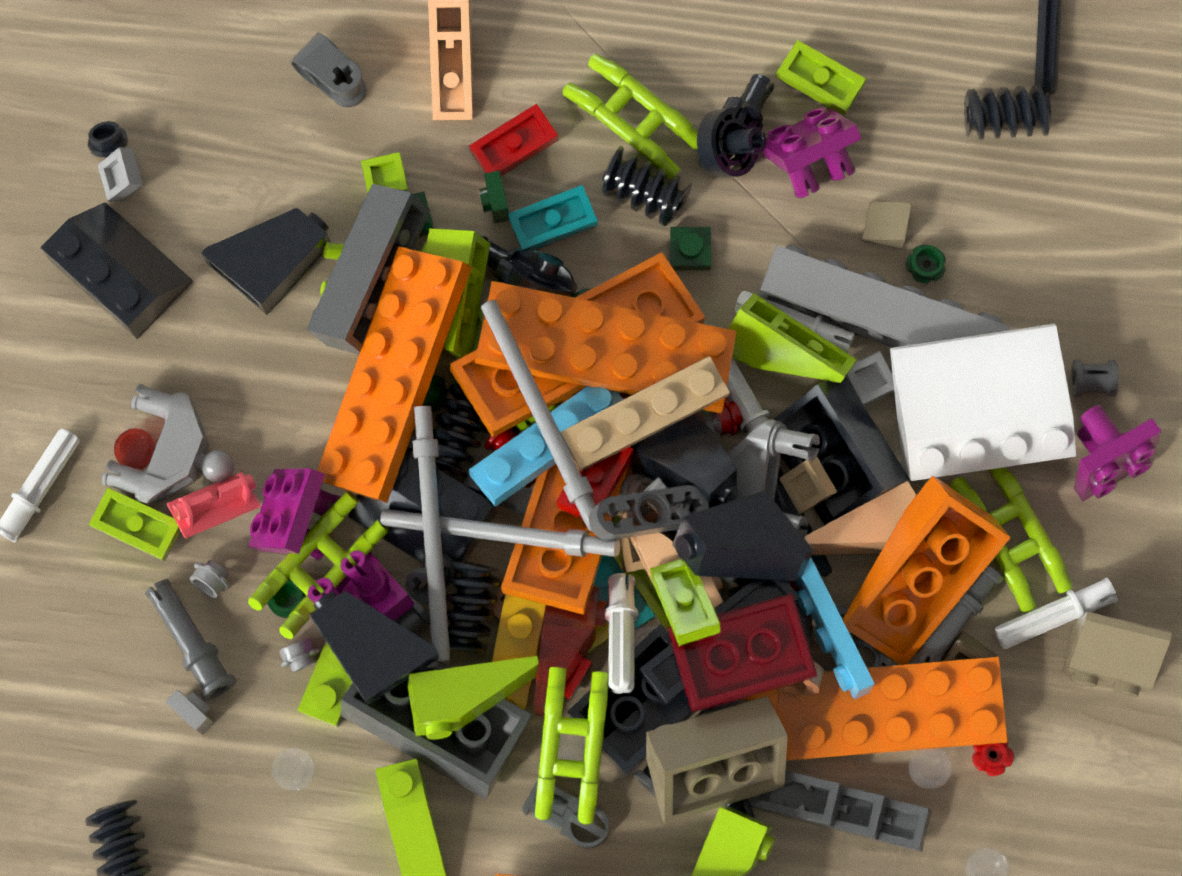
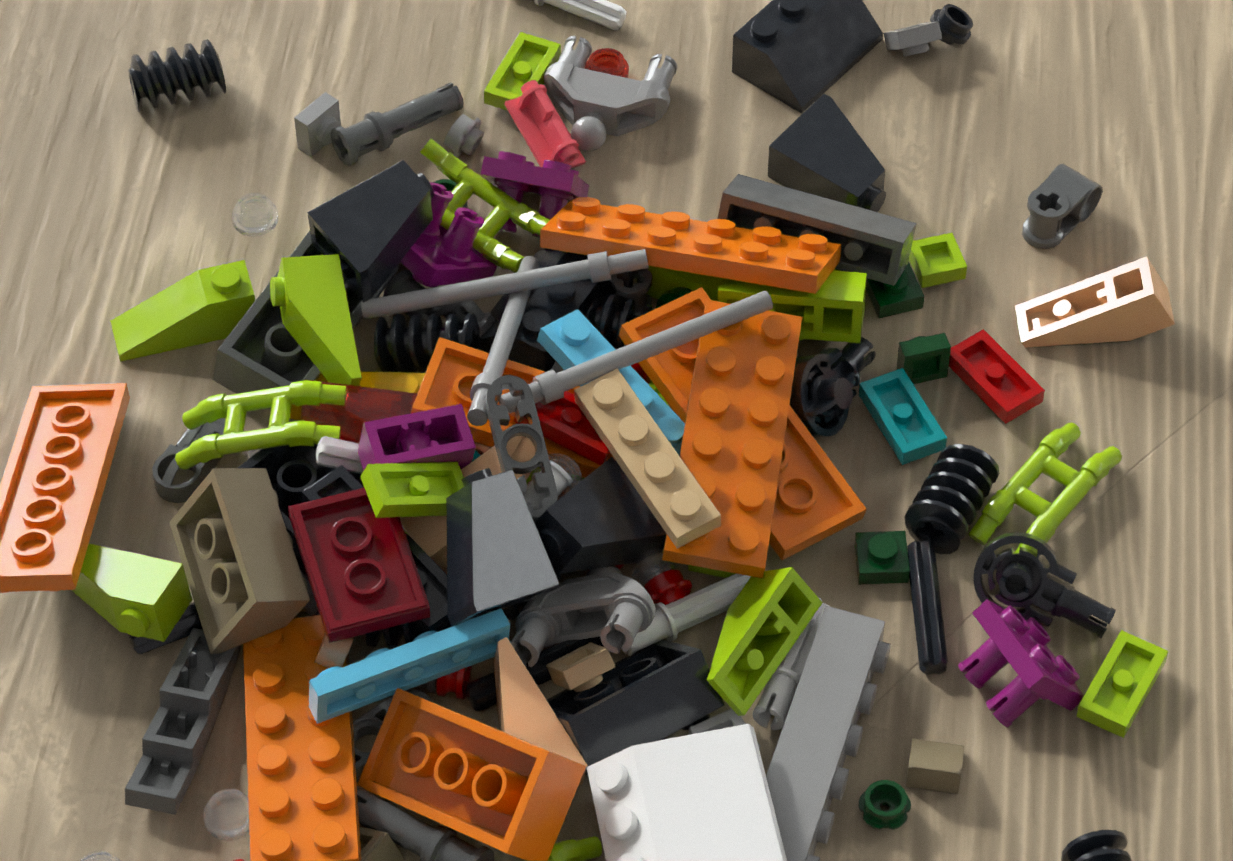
camera: 85 degrees right, 25 degrees down
(636, 602) = (418, 438): none -> magenta brick
(743, 216) = (927, 608): none -> black axle

